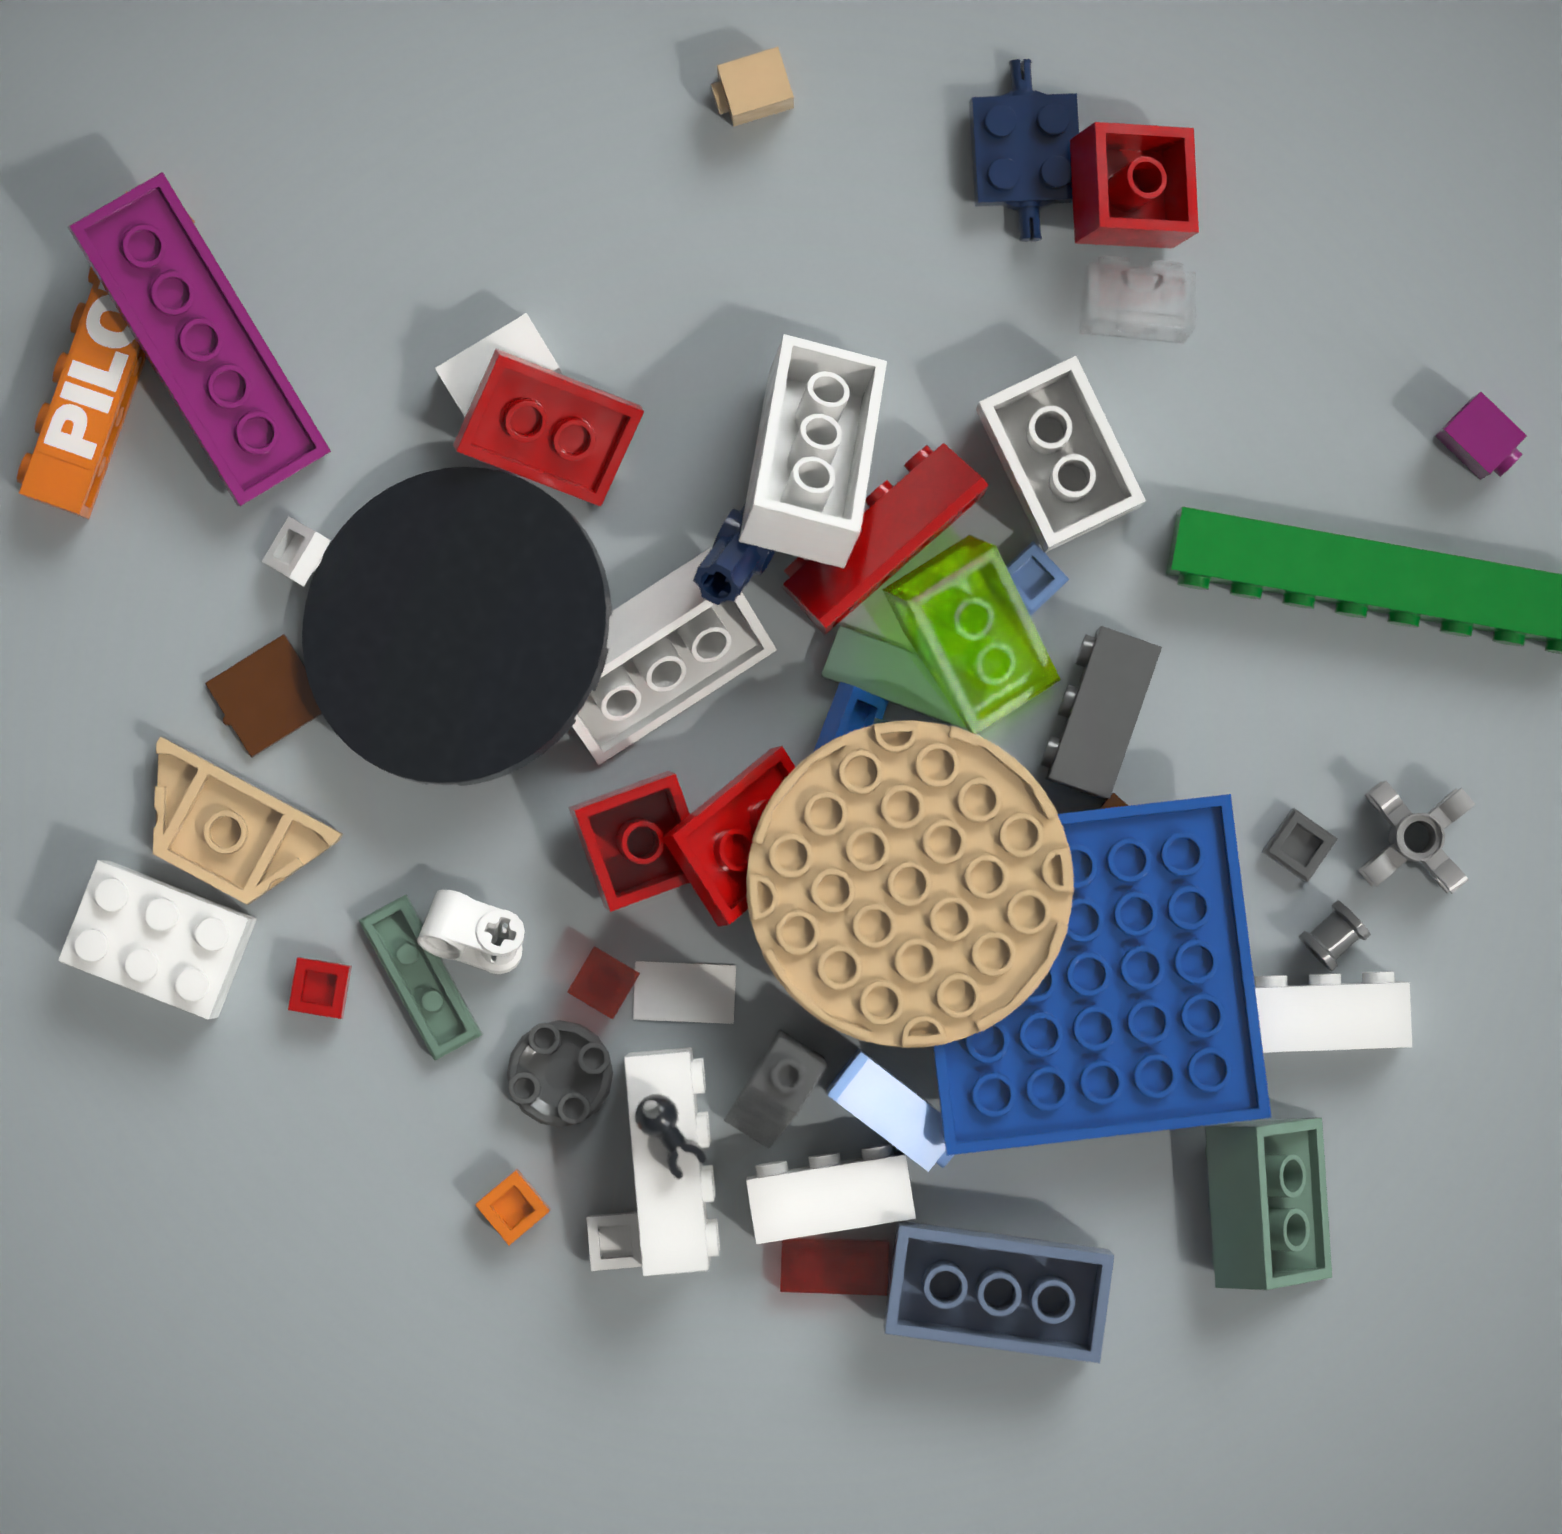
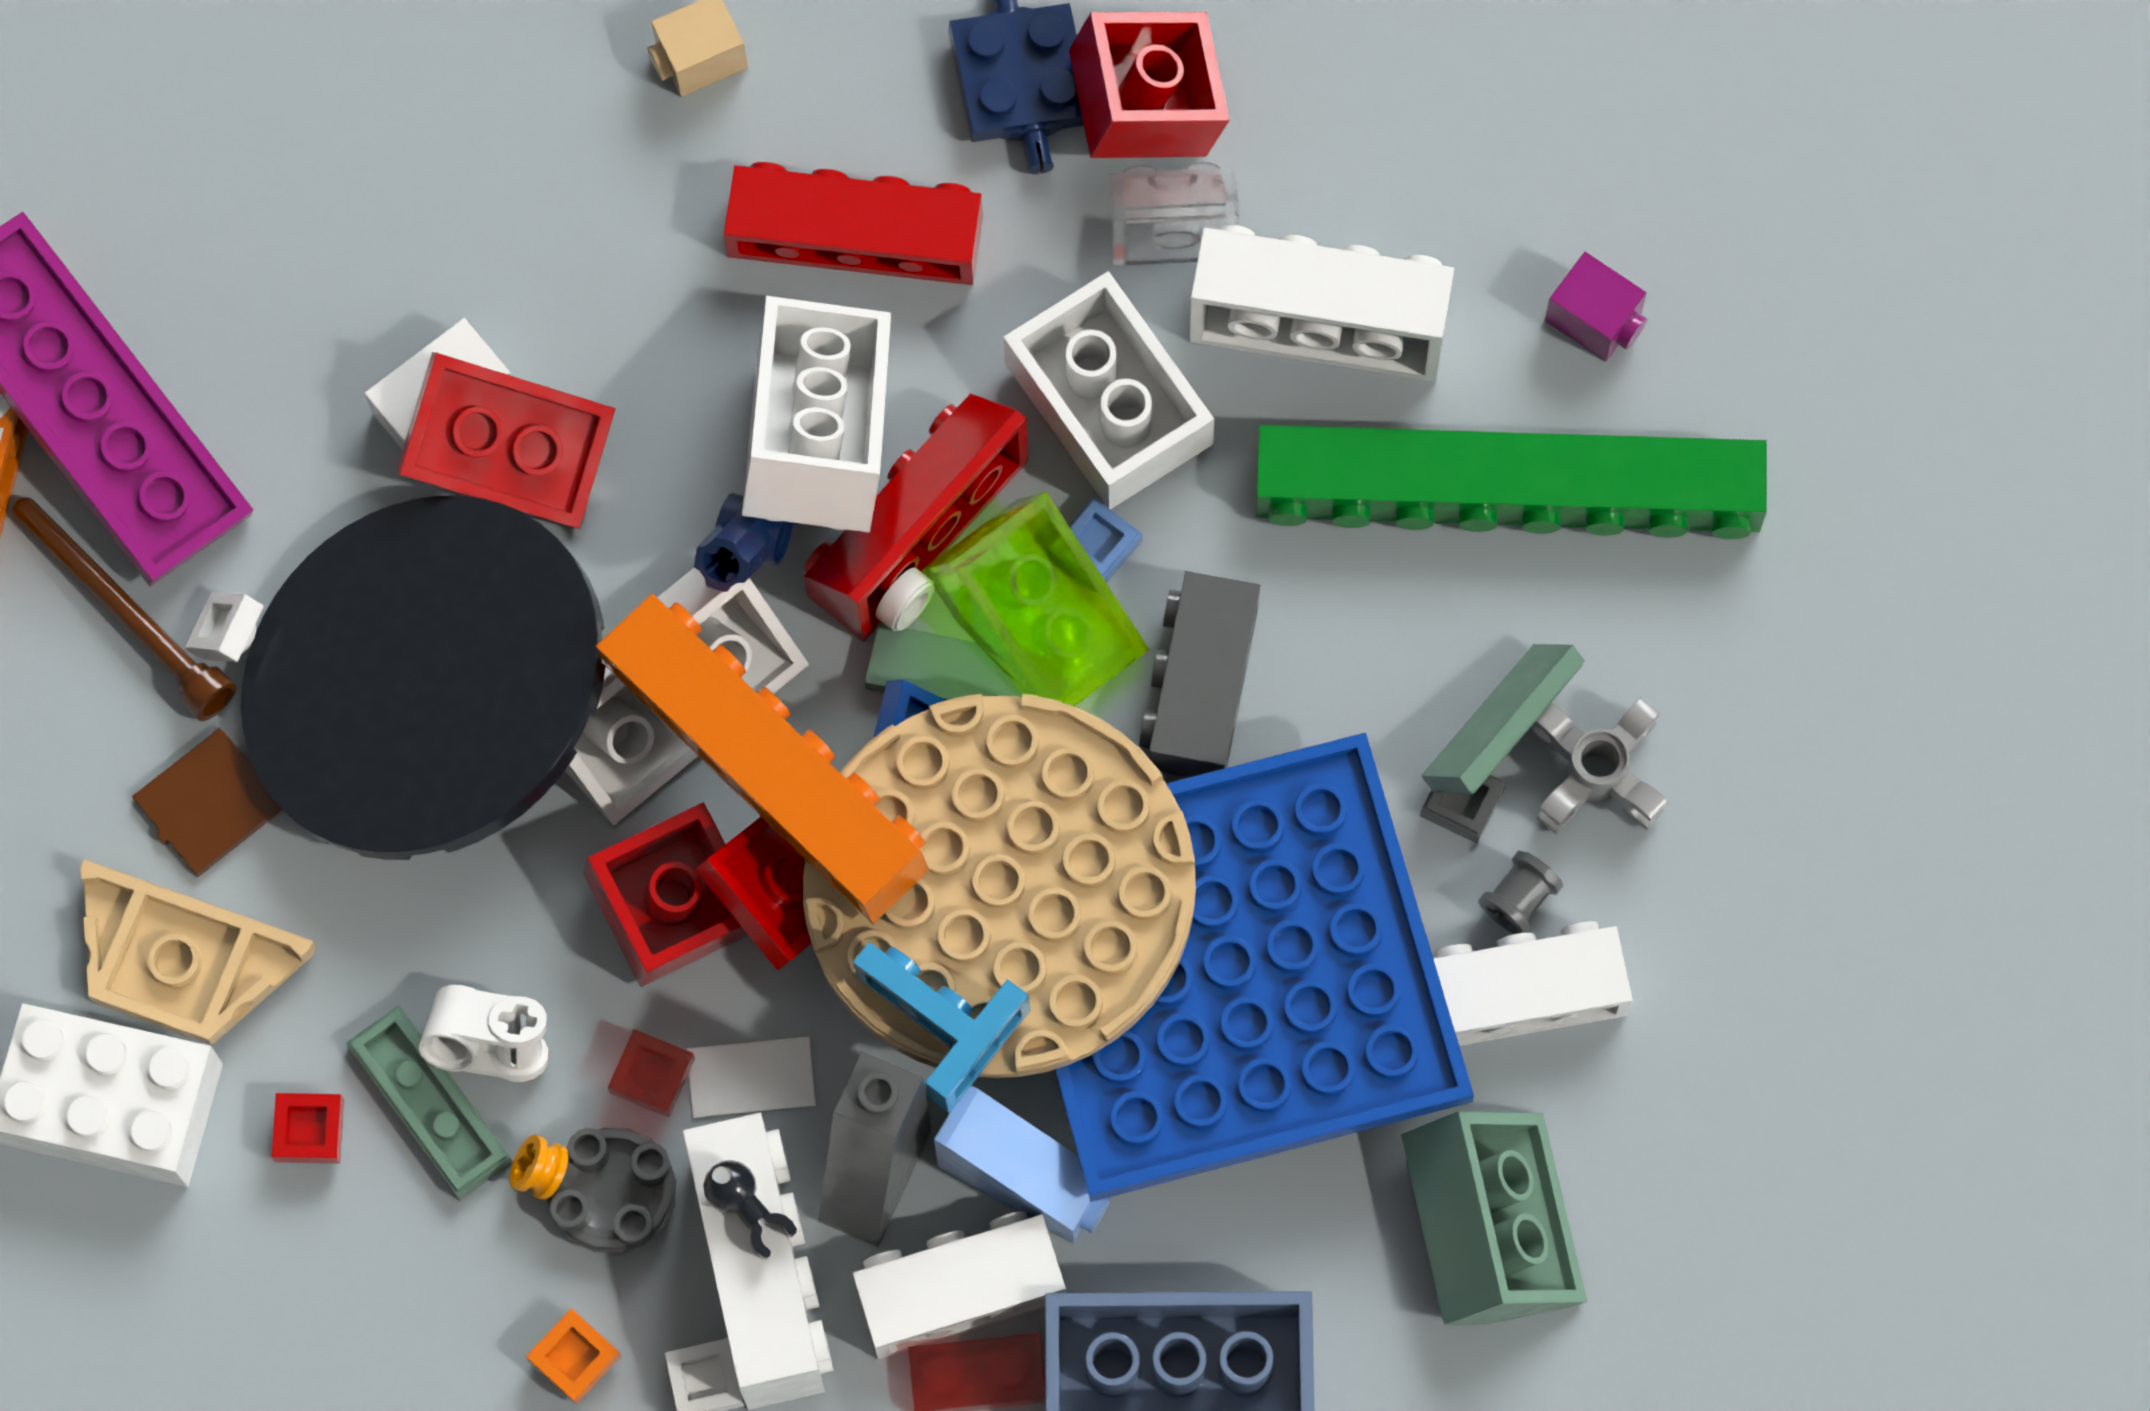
camera: 10 degrees left, 15 degrees down
(271, 598) = (202, 687): none -> reddish brown piece
(503, 1049) = (538, 1167): none -> light orange bush
(729, 755) = (764, 757): none -> orange brick
(851, 1001) = (946, 1018): none -> dark azure bracket
(864, 613) = (905, 599): none -> white tile
(865, 269) = (853, 223): none -> red brick
(1252, 405) = (1320, 302): none -> white brick
(1344, 789) = (1503, 718): none -> sand green tile

